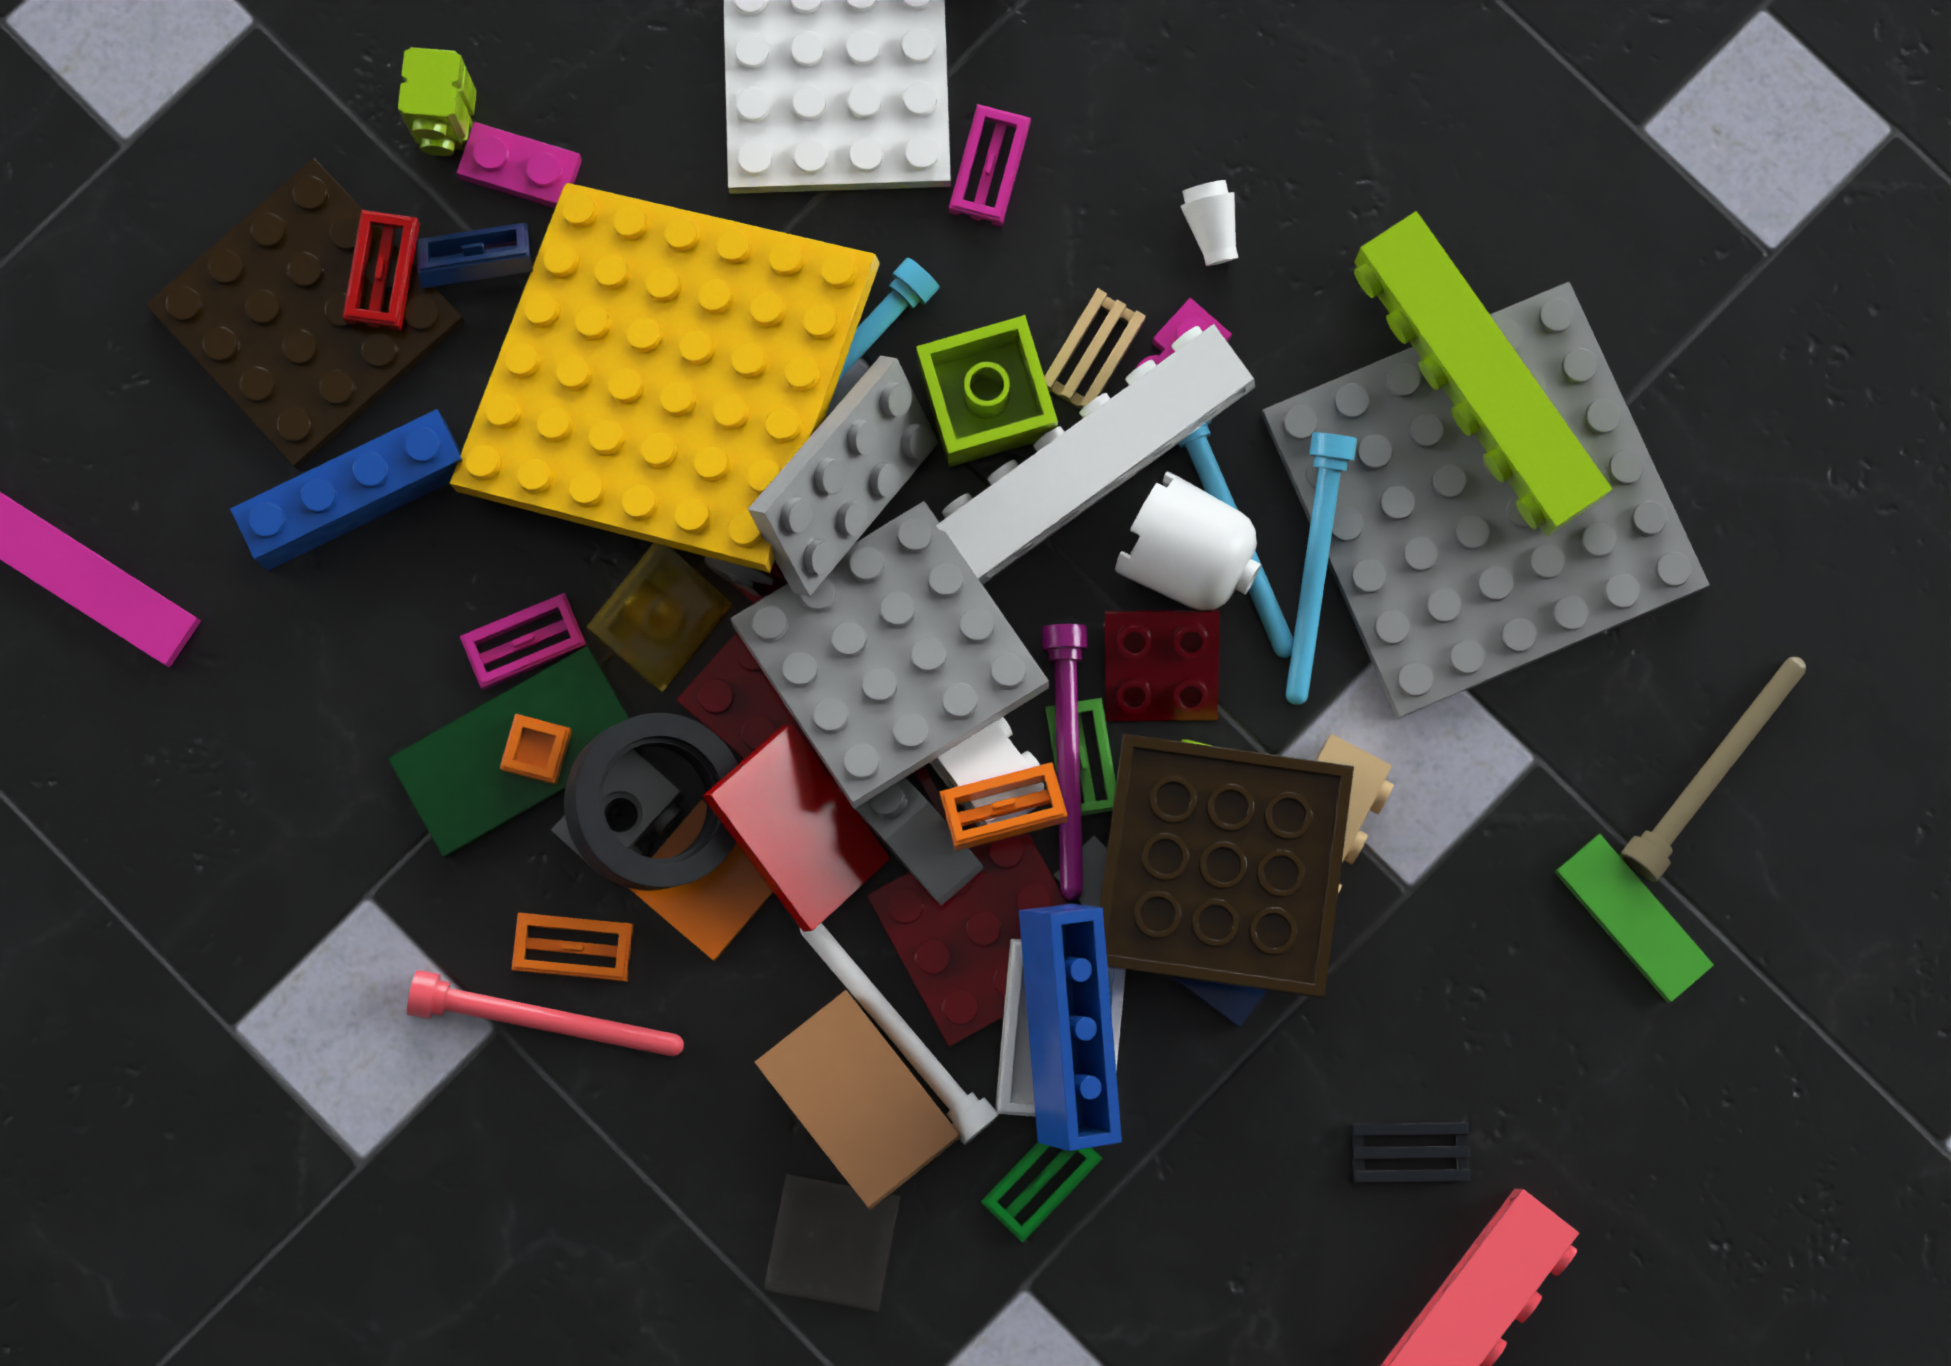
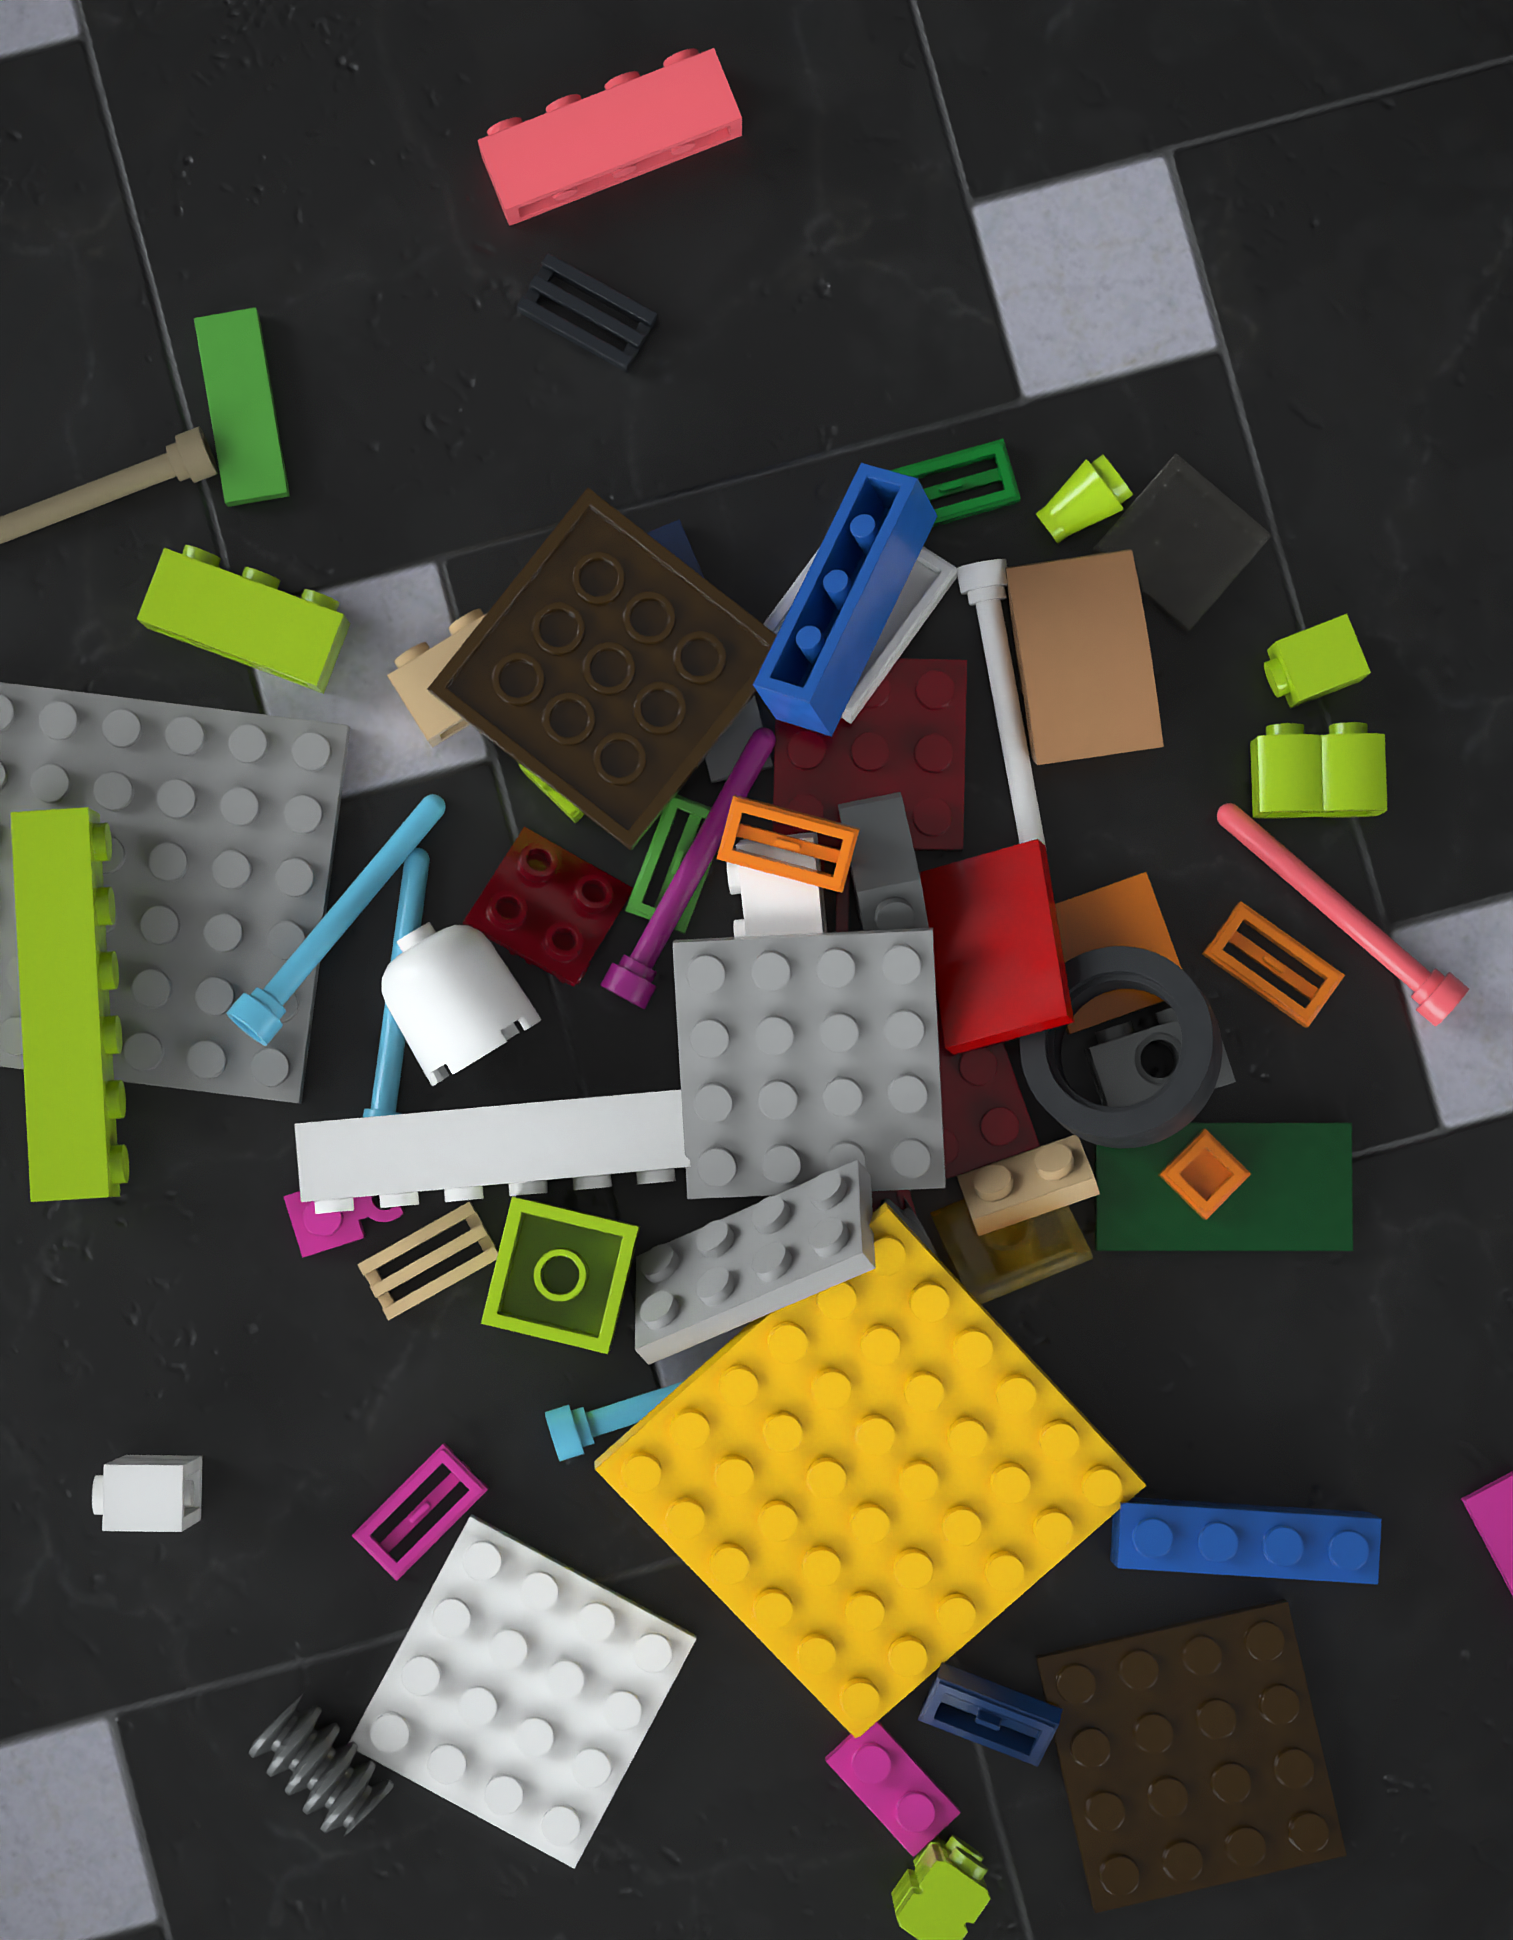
camera: 150 degrees left, 5 degrees up
(374, 316) = (1065, 1743): red tile -> none
(533, 661) = (1101, 1286): dark pink tile -> none
(620, 1115) = (1318, 773): none -> lime brick
(669, 661) = (1028, 1185): none -> tan plate
(671, 1203) = (1316, 662): none -> lime brick
(929, 1230) = (1085, 499): none -> lime cone
(1197, 57) = (149, 1493): none -> white brick
(1212, 220) = (233, 1323): white cone -> none
(1529, 752) = (245, 617): none -> lime brick

